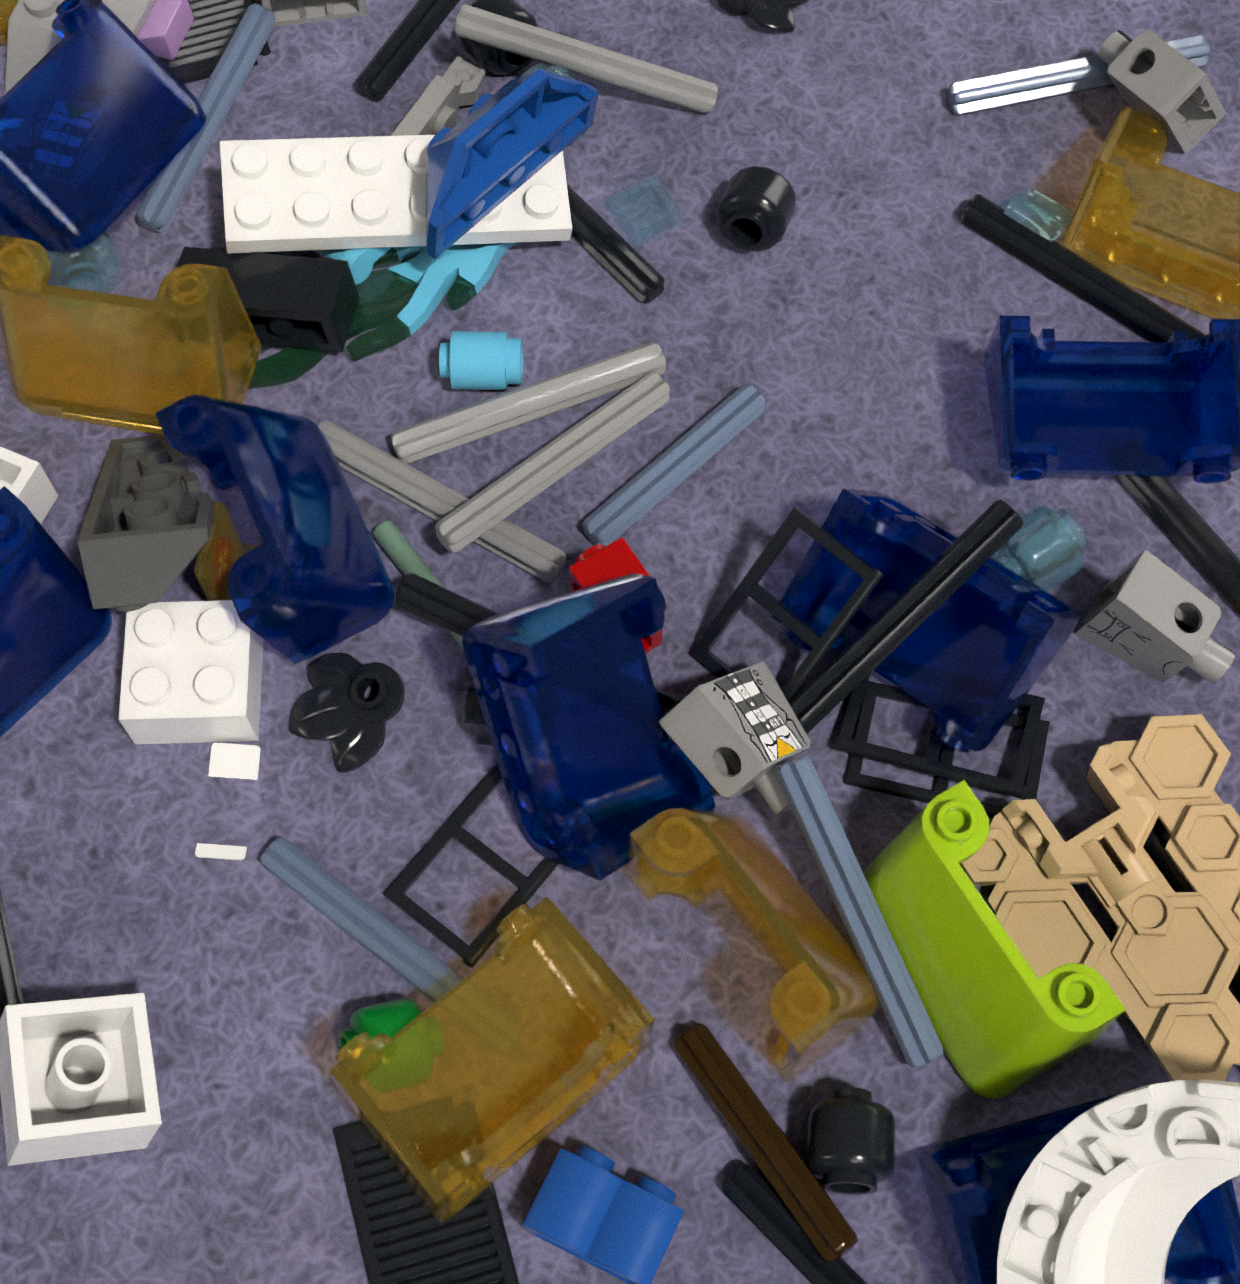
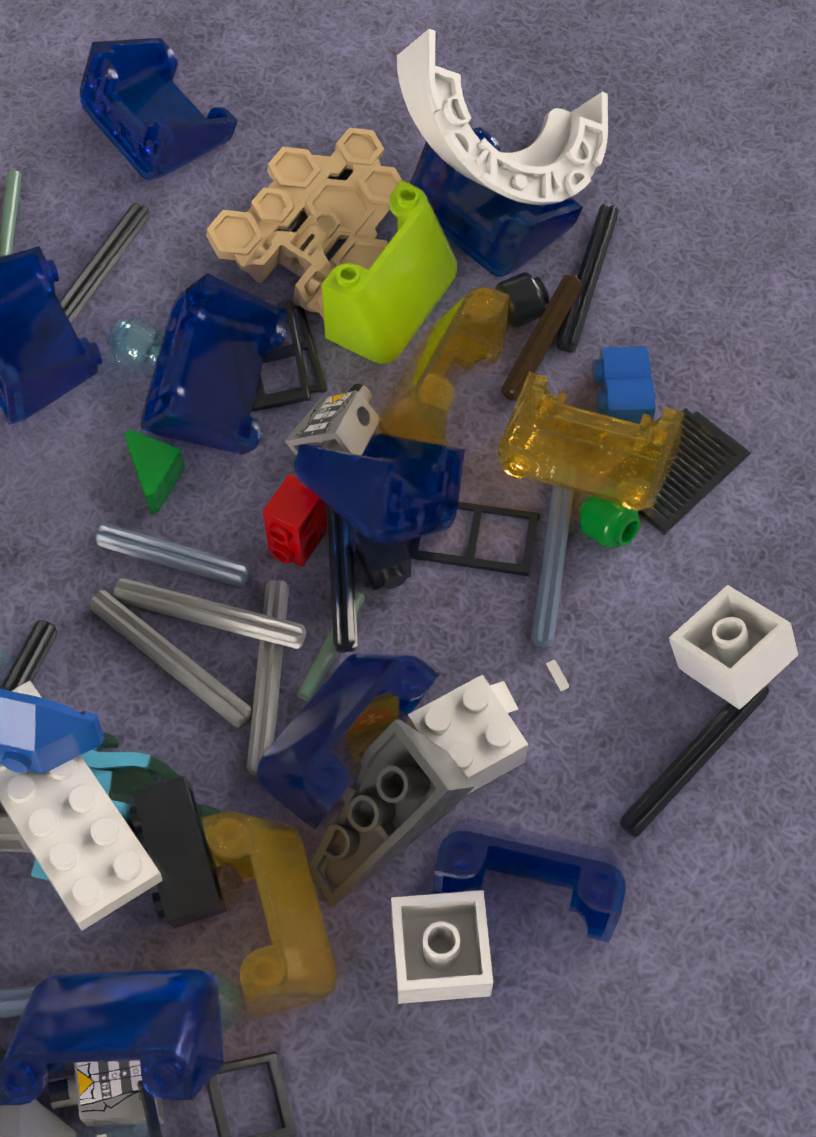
camera: 120 degrees left, 5 degrees down
(339, 710) = (440, 645): black plate -> none
(481, 360) = (155, 694): medium azure brick -> none
(750, 587) = (260, 415): black window -> none
(812, 479) = (156, 466): none -> green slope
(859, 912) = (400, 338): sand blue axle -> none
(905, 613) = (221, 373): black axle -> none
(1156, 622) = (156, 259): light grey torso -> none

